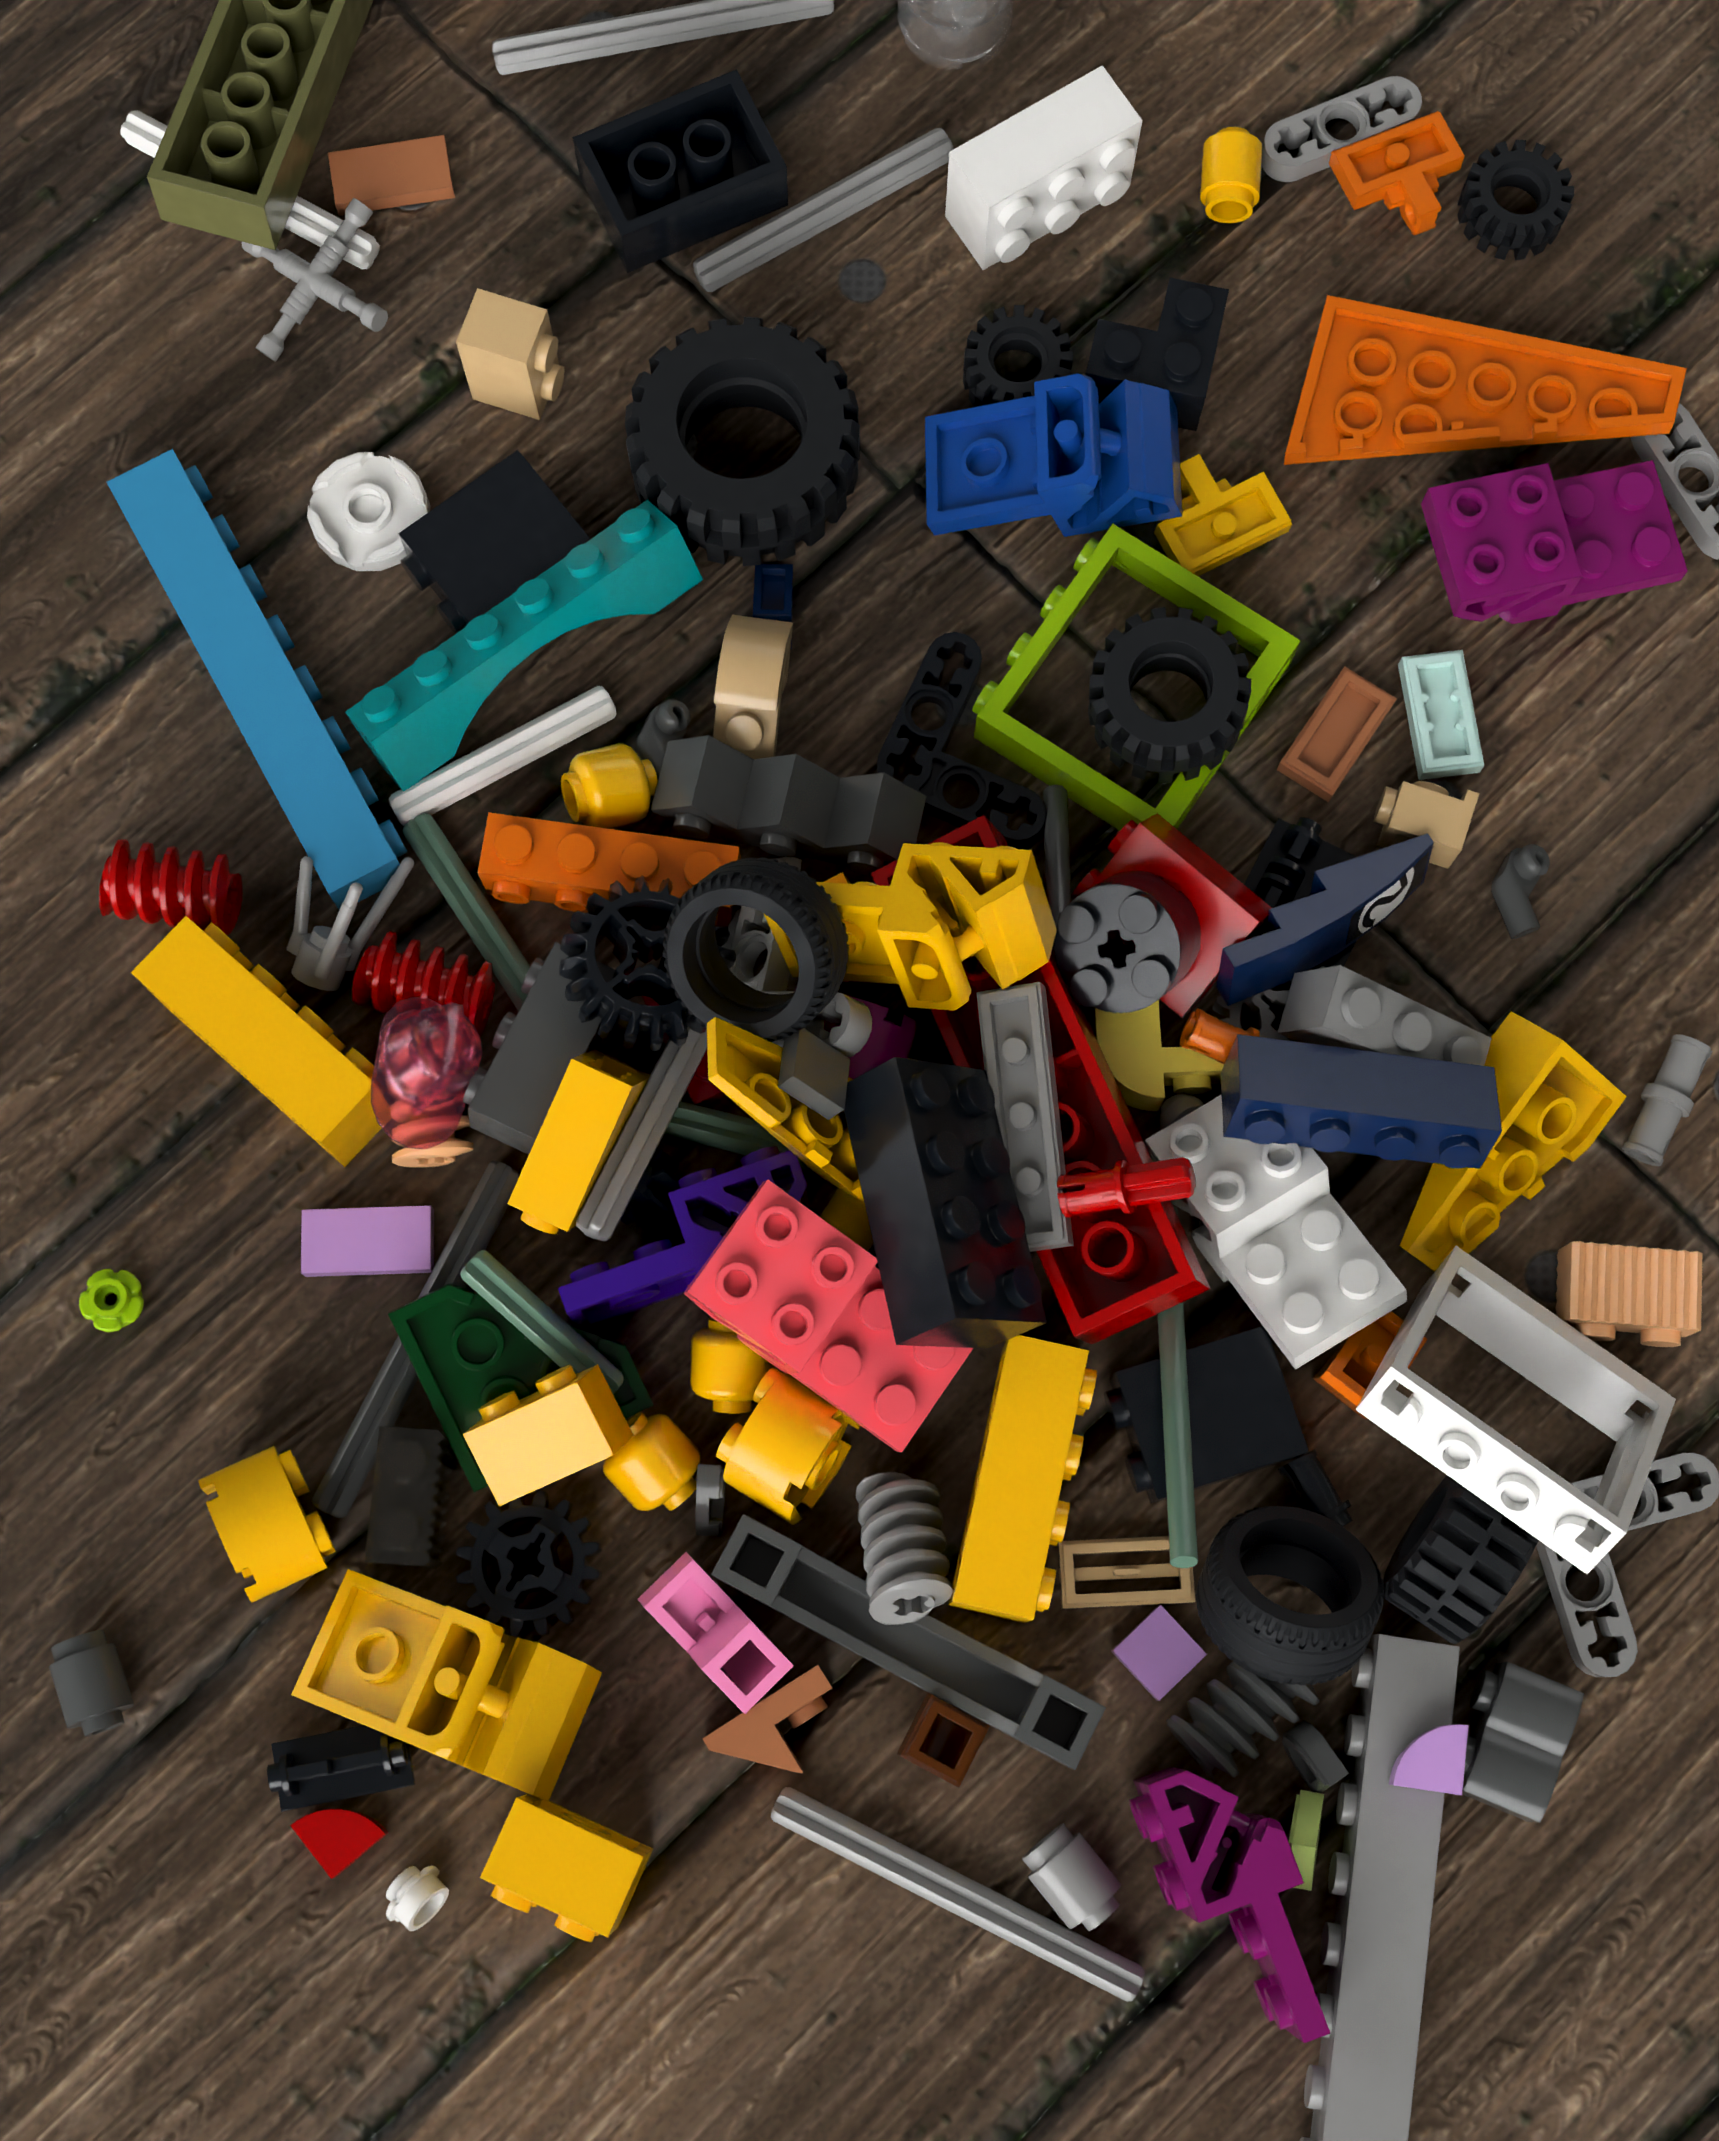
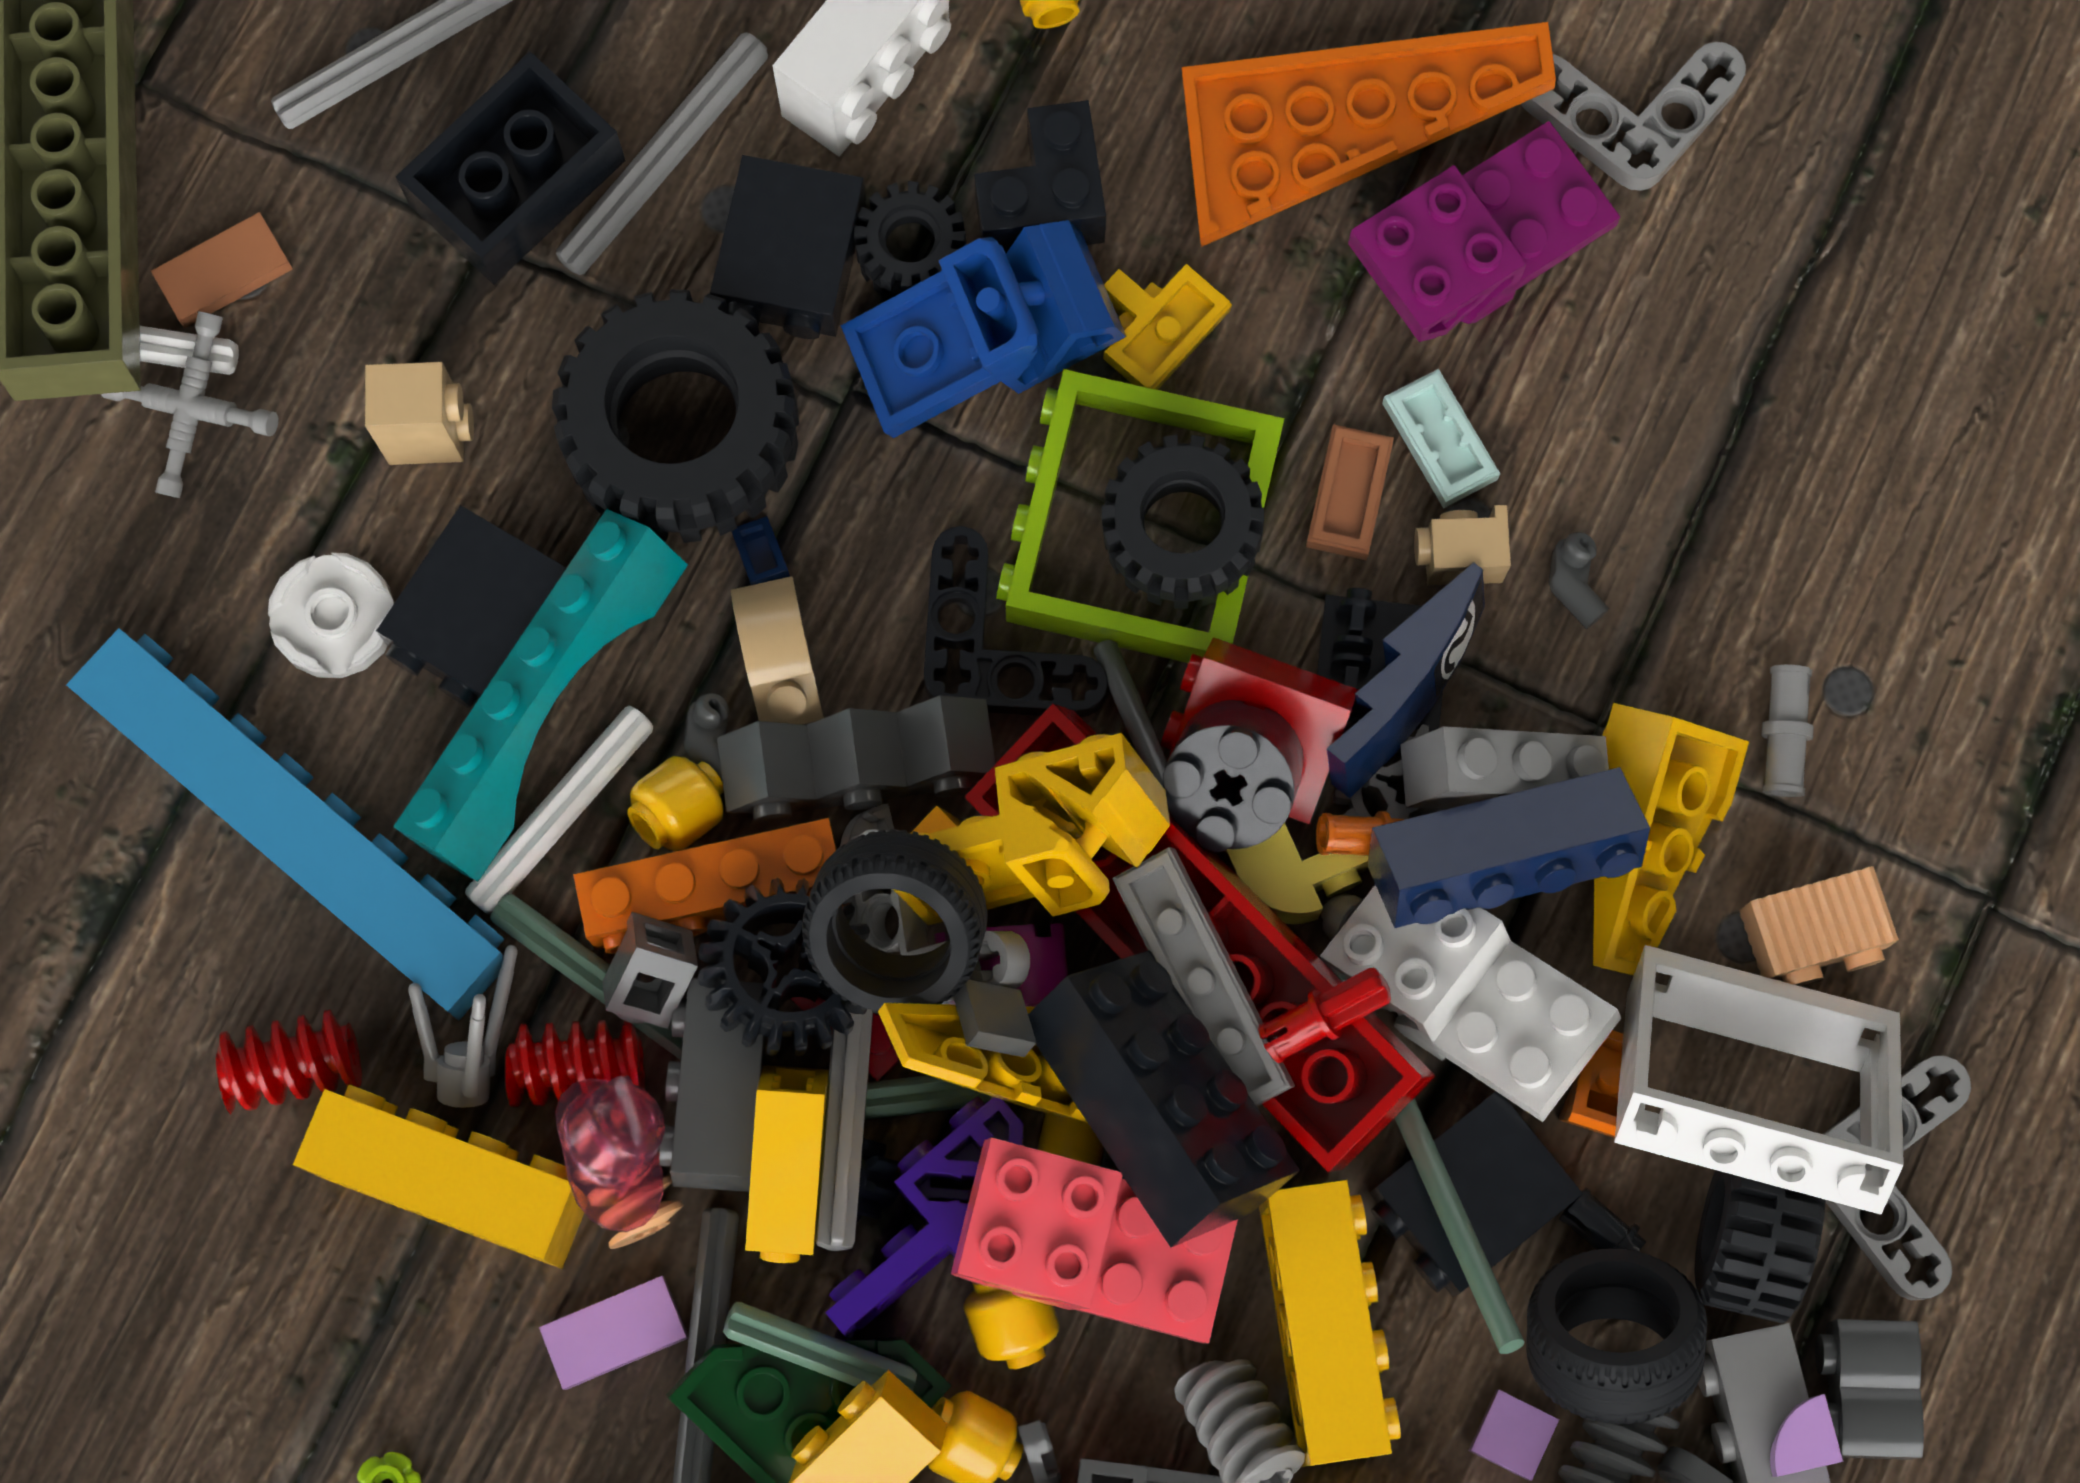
camera: 20 degrees left, 0 degrees up
(522, 924) = (650, 971): none -> dark grey brick
(786, 1446) = (1095, 1378): yellow brick -> none
(906, 328) = (789, 245): none -> black brick
(1069, 1575) = (1403, 1393): tan tile -> none

